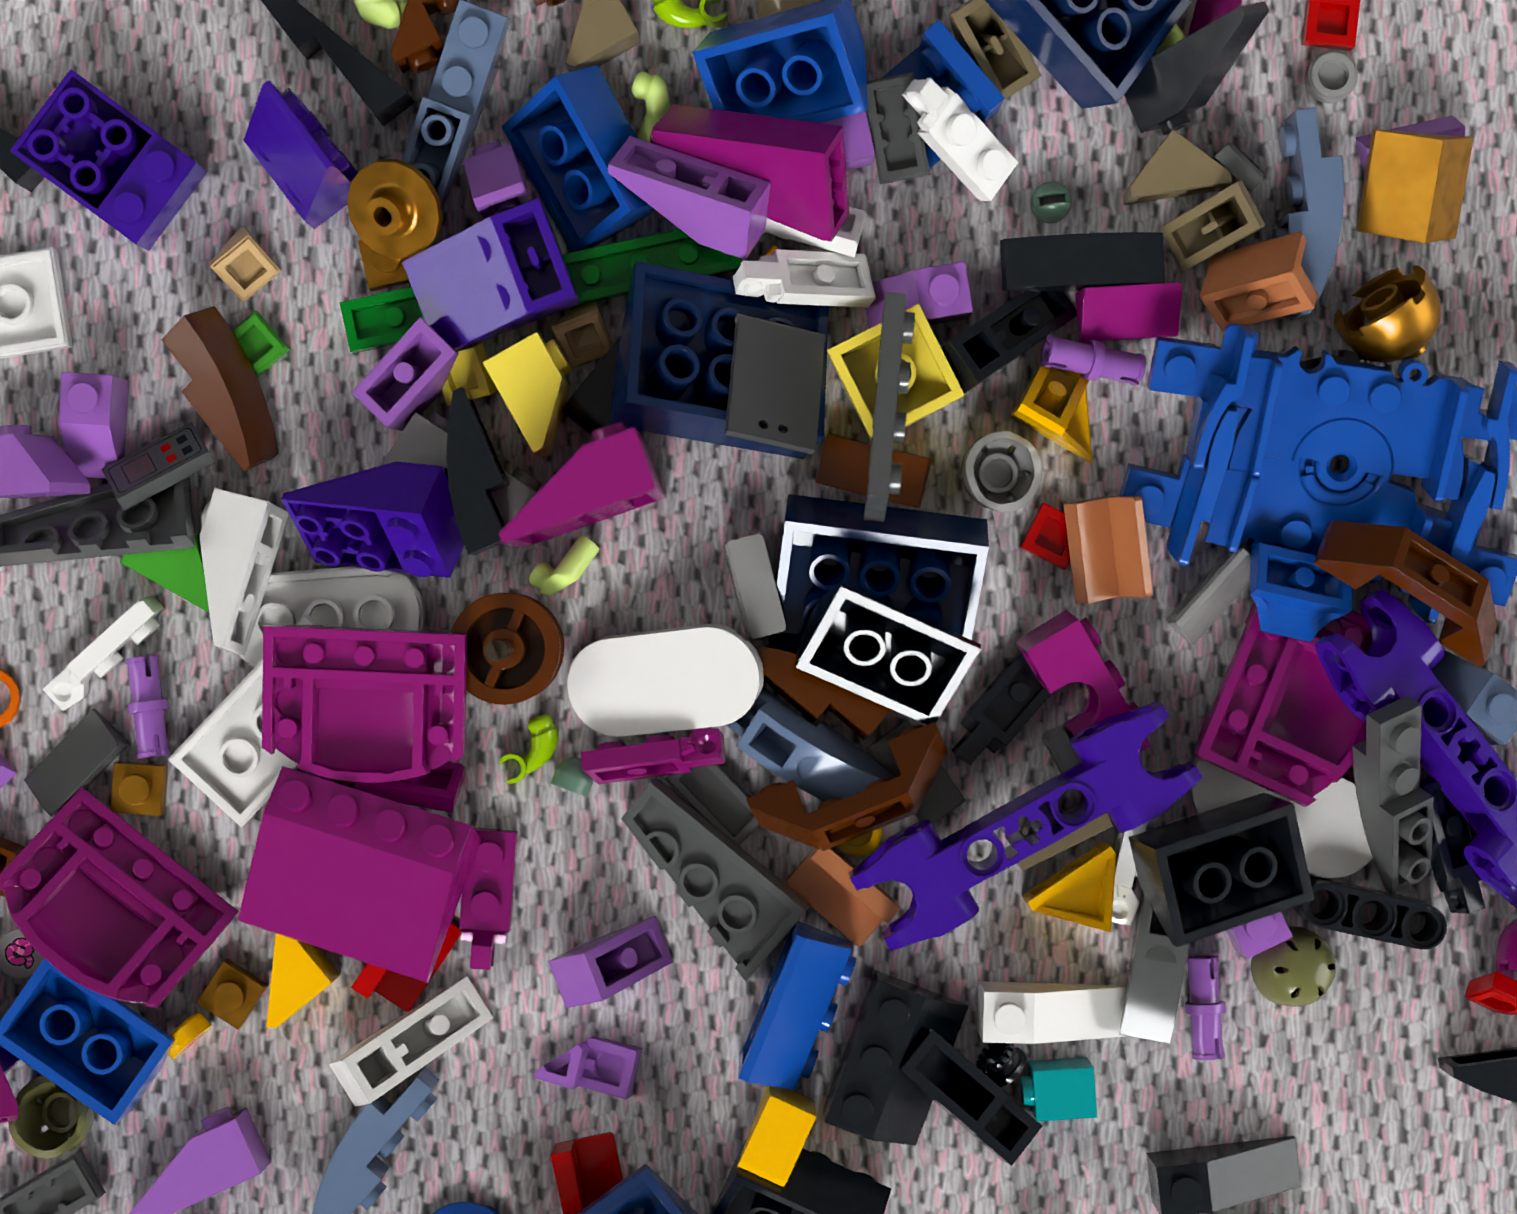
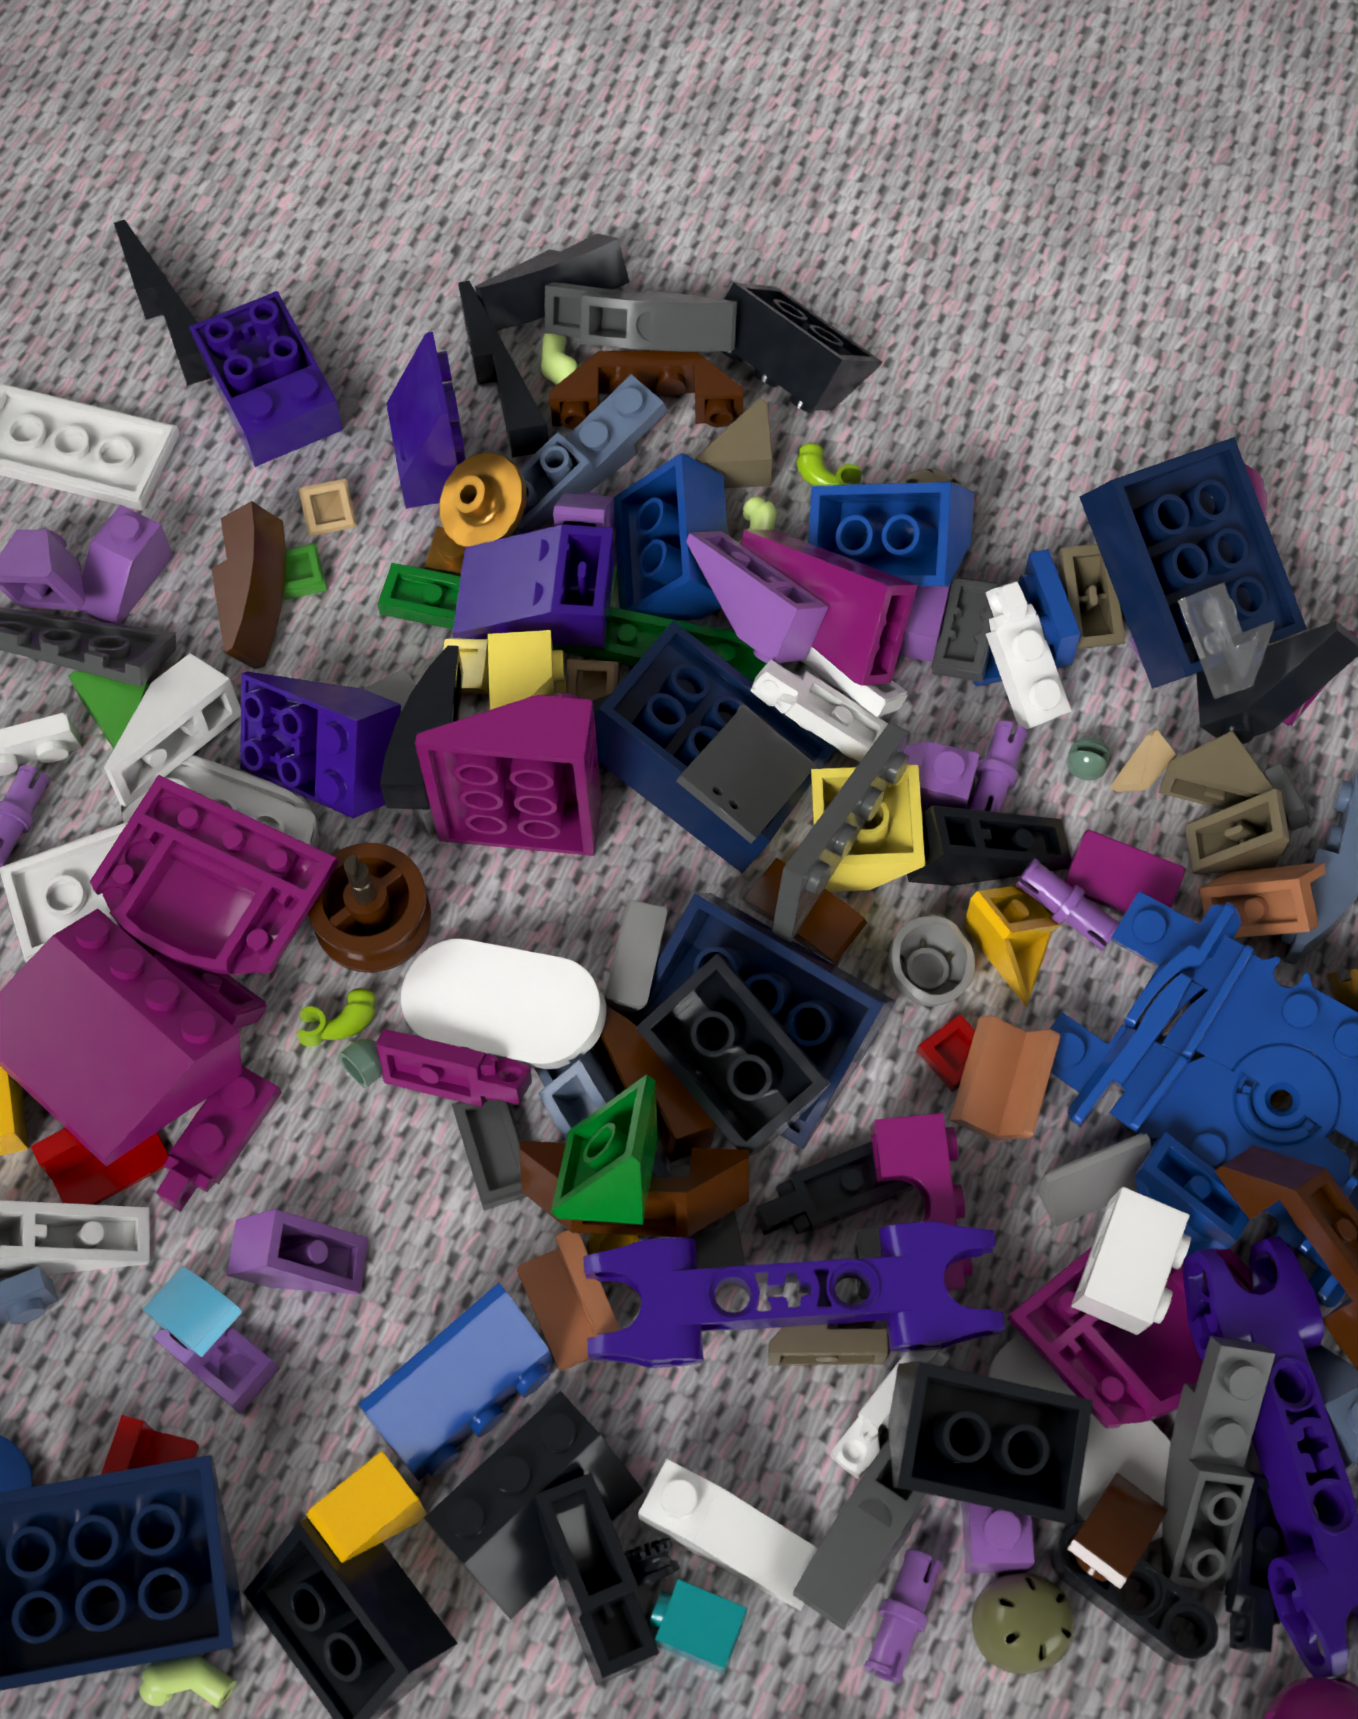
camera: 30 degrees right, 25 degrees down
(157, 466) = (152, 622): dark grey tile -> none
(407, 376) = (415, 633): medium lavender slope -> none
(556, 1050) = (192, 1311): none -> medium azure slope
(568, 570) = (450, 875): yellowish green arm -> none
(728, 888) = (449, 1217): dark grey wing -> none
(834, 800) = (610, 1160): none -> green slope
(979, 257) = (998, 770): none -> medium lavender pin
(1080, 890) = (817, 1410): yellow slope -> none
(1081, 261) = (1079, 801): black slope -> none
(1105, 194) = (1145, 764): none -> tan slope
(1145, 60) = (1225, 652): none -> clear slope
(1278, 672) = (1132, 1262): none -> white brick
(1346, 883) = (1117, 1531): none -> reddish brown slope

